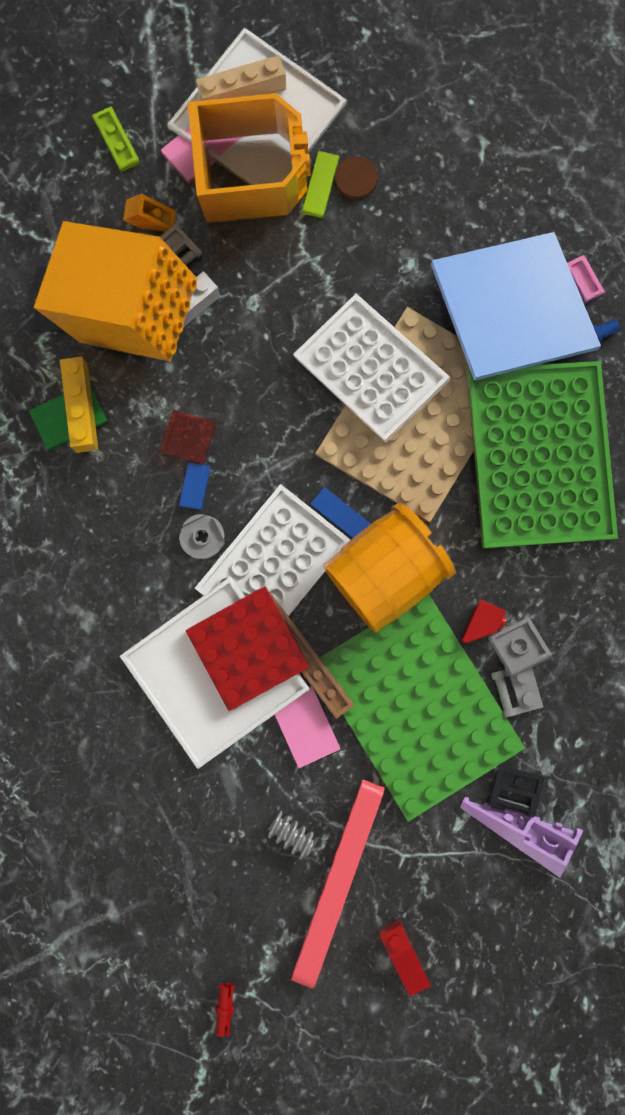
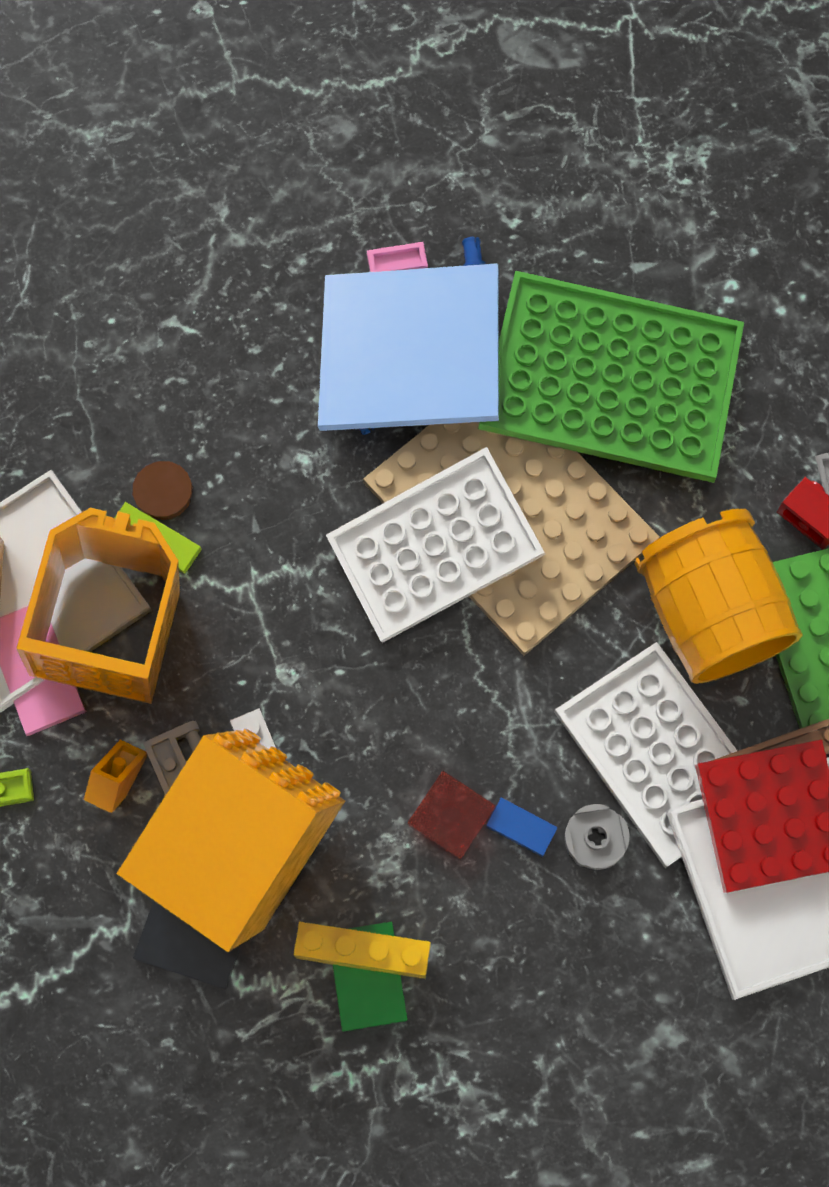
camera: 75 degrees left, 10 degrees down
(339, 513) = (619, 644): blue tile -> none

